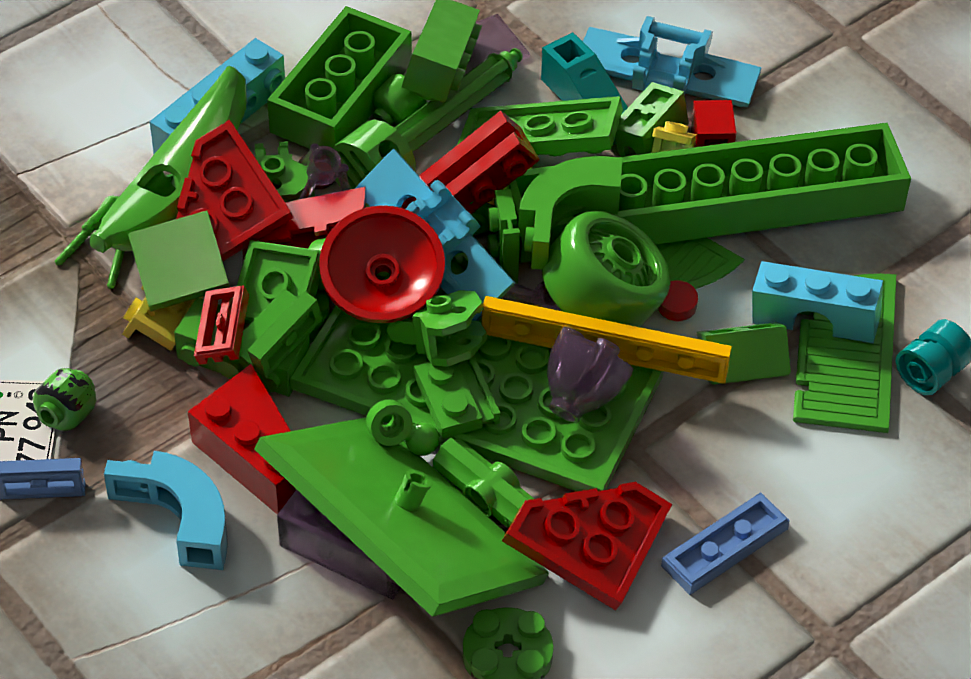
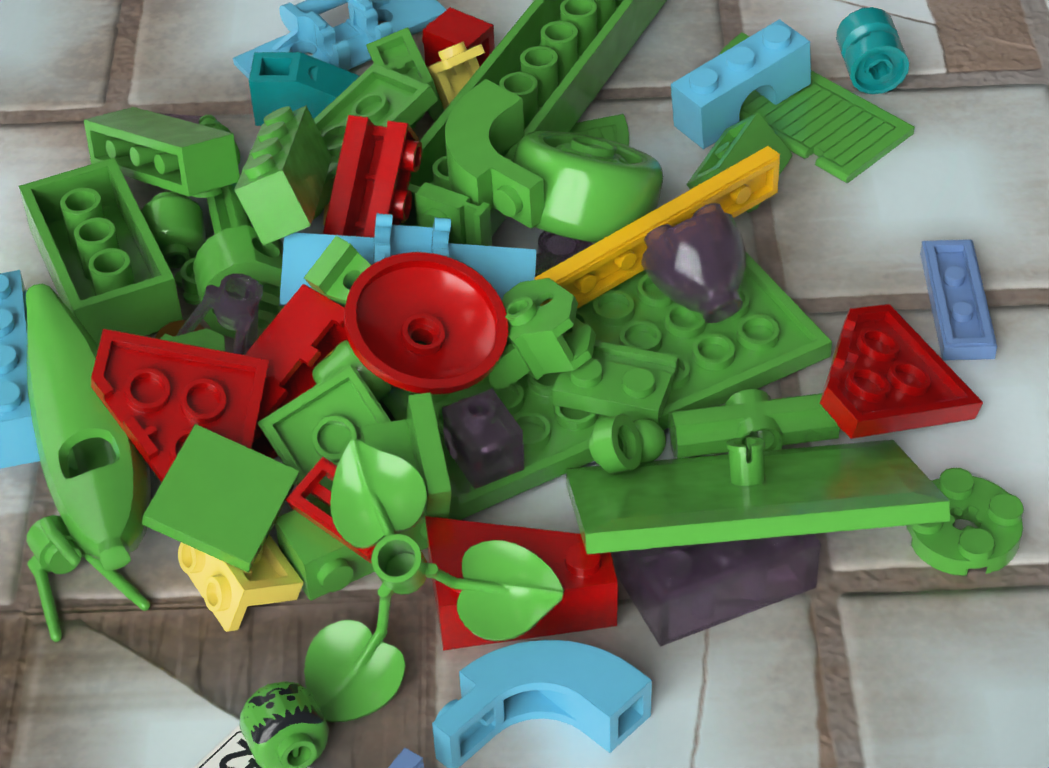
camera: 50 degrees left, 5 degrees down
(218, 430) = (500, 597): none -> bright green plant
(339, 354) = (483, 438): none -> brick
(383, 191) = (336, 270): none -> bright green tile
(440, 115) = (284, 174): none -> bright green wedge

